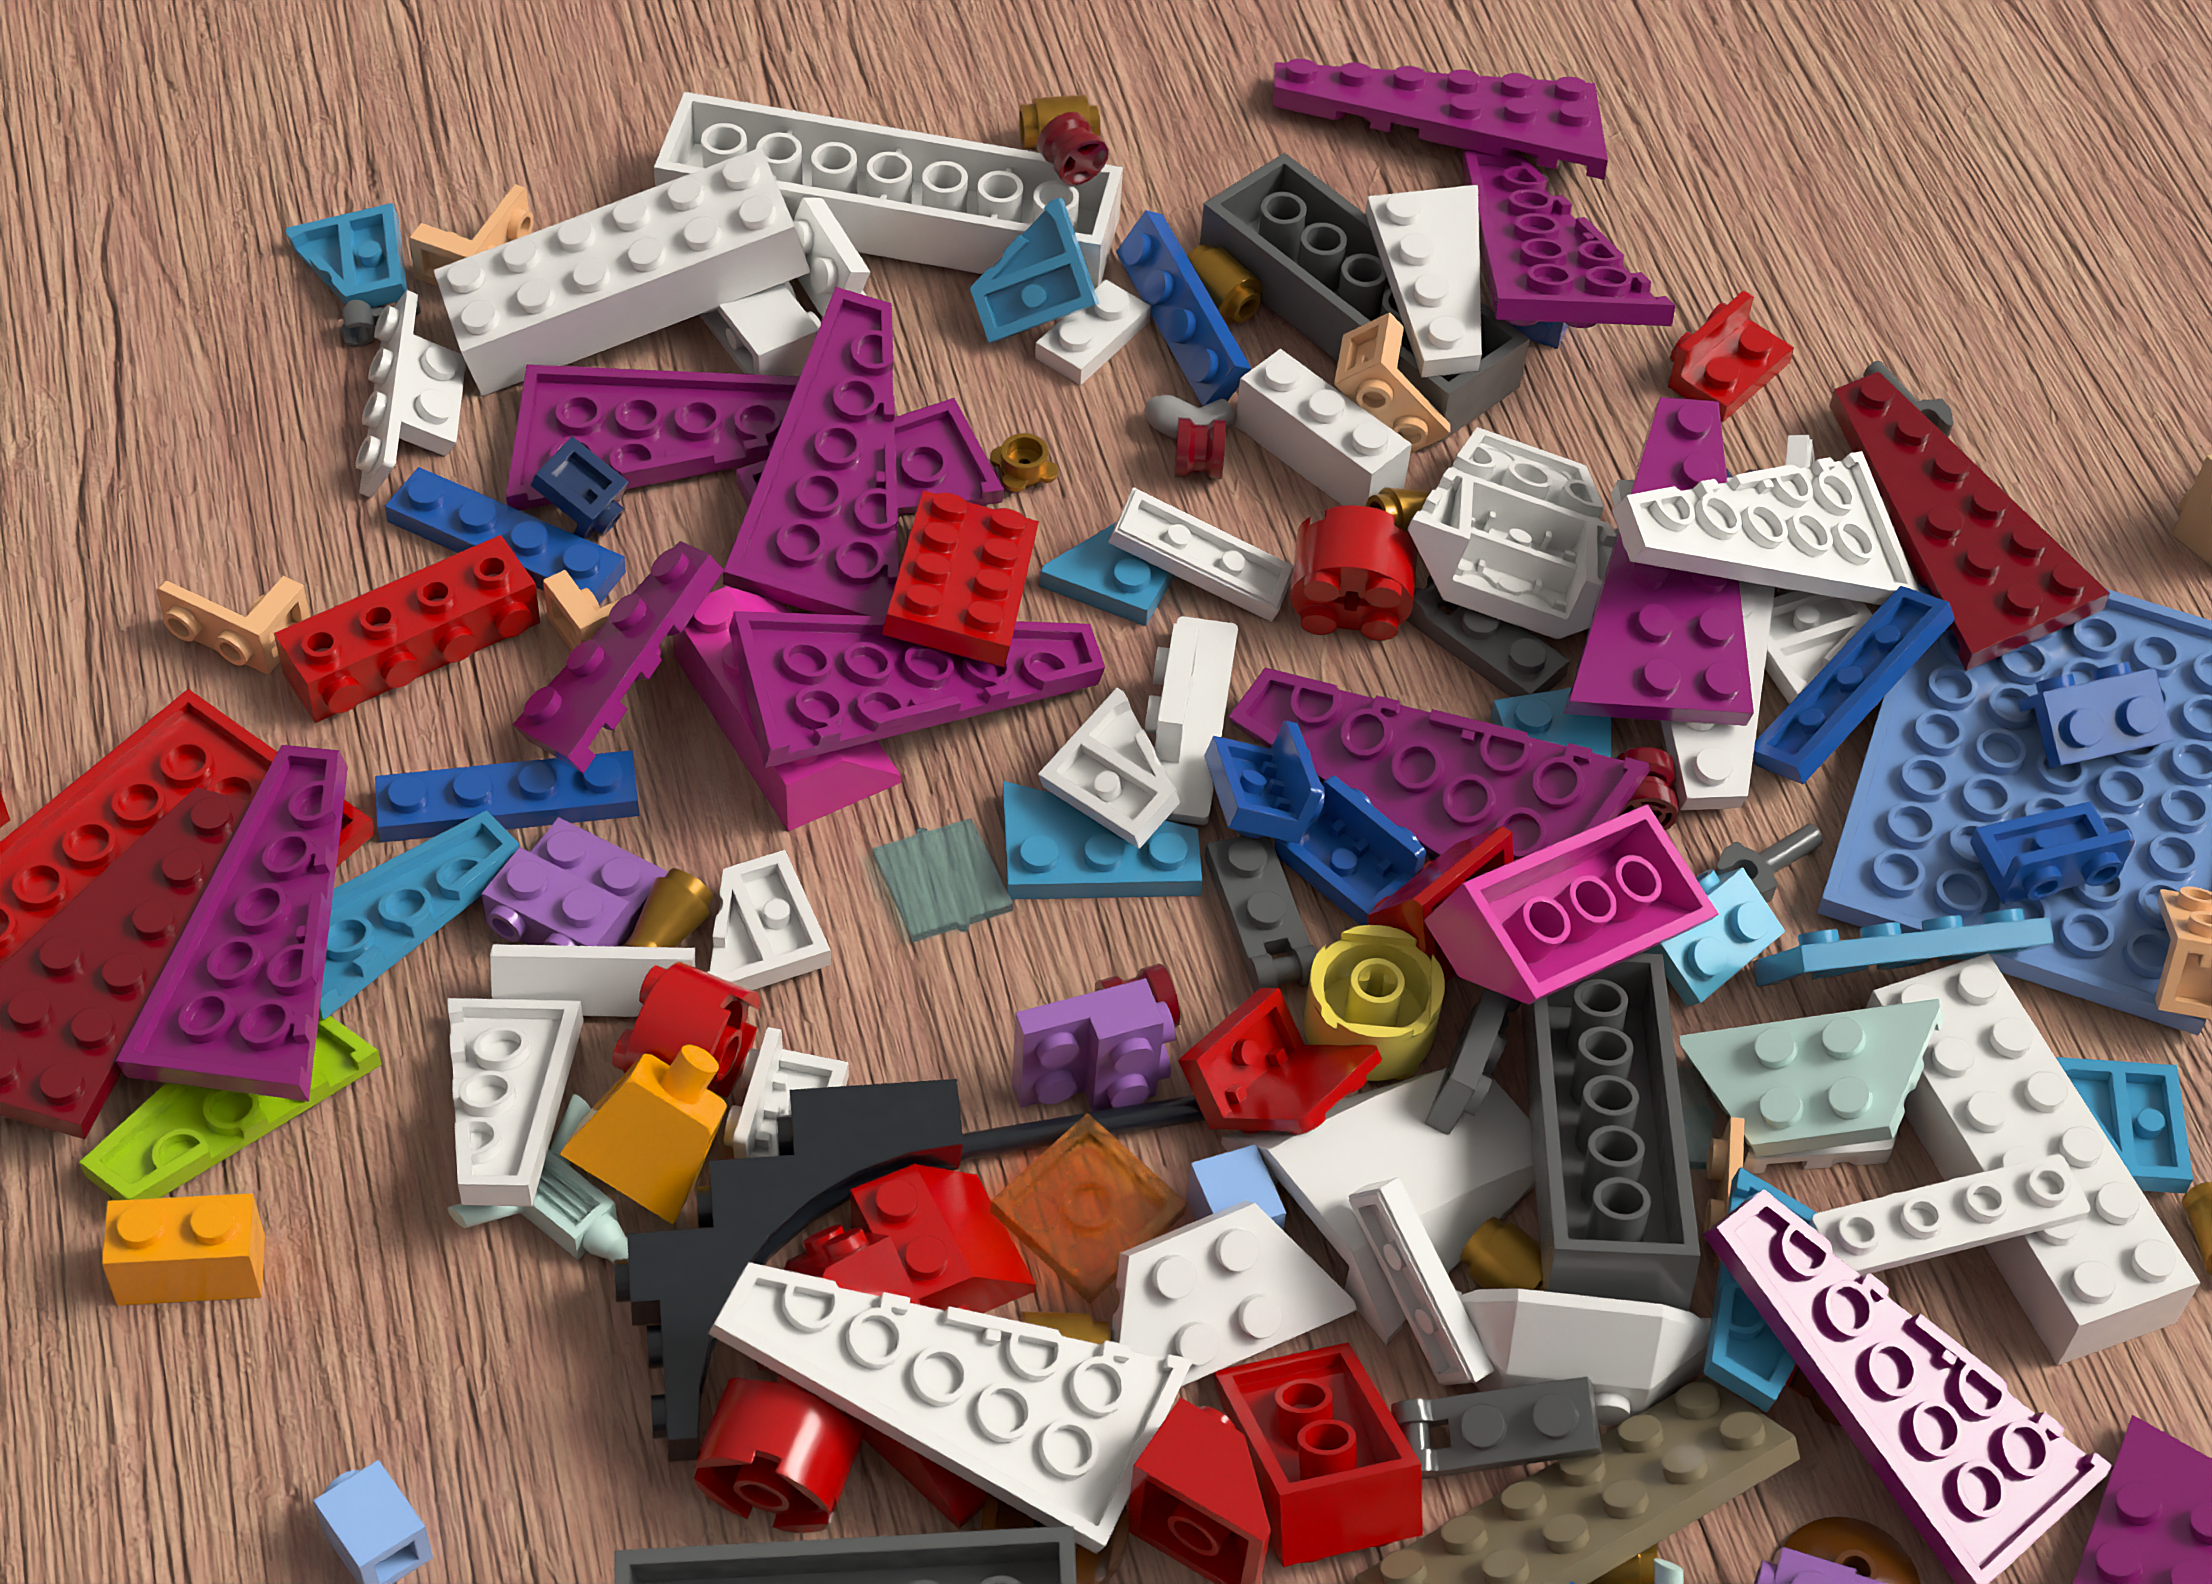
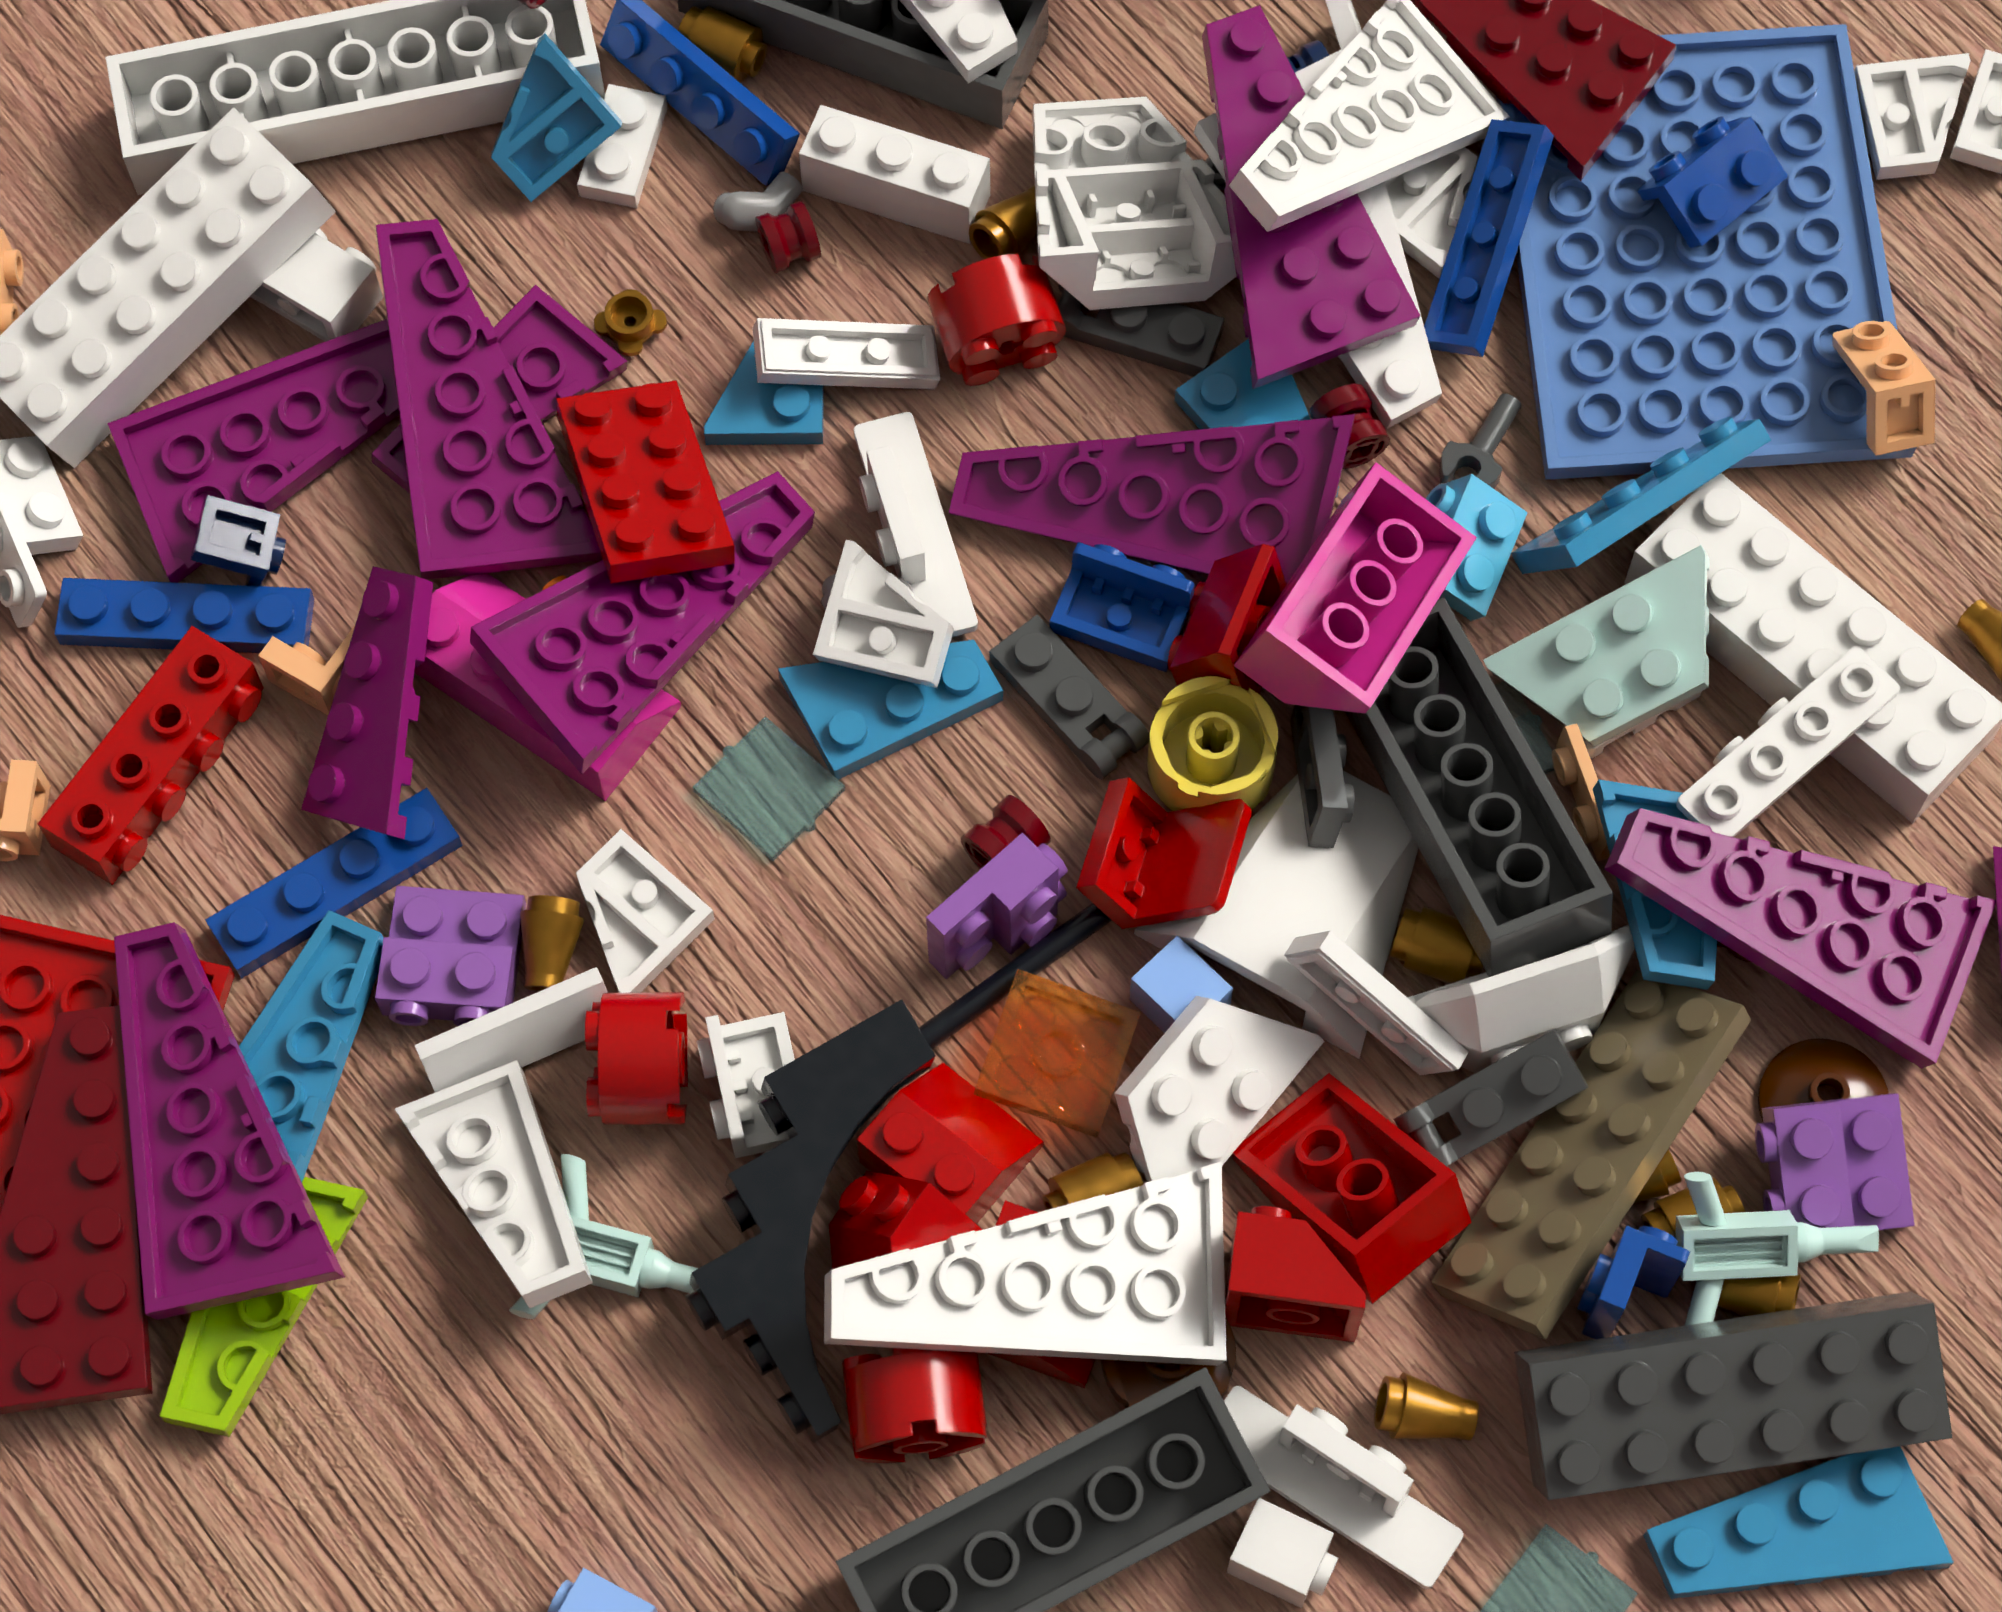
camera: 20 degrees left, 15 degrees up
(184, 1249) = (300, 1453): light orange brick -> none
(652, 1130) = (656, 1164): light orange torso -> none
(828, 253) = (347, 185): white bracket -> none
(1266, 788) = (1020, 574): blue bracket -> none
(1371, 379) = (923, 106): light nougat bracket -> none
(2050, 852) = (1728, 340): blue bracket -> none
(2140, 1116) = (1893, 564): dark azure wing -> none

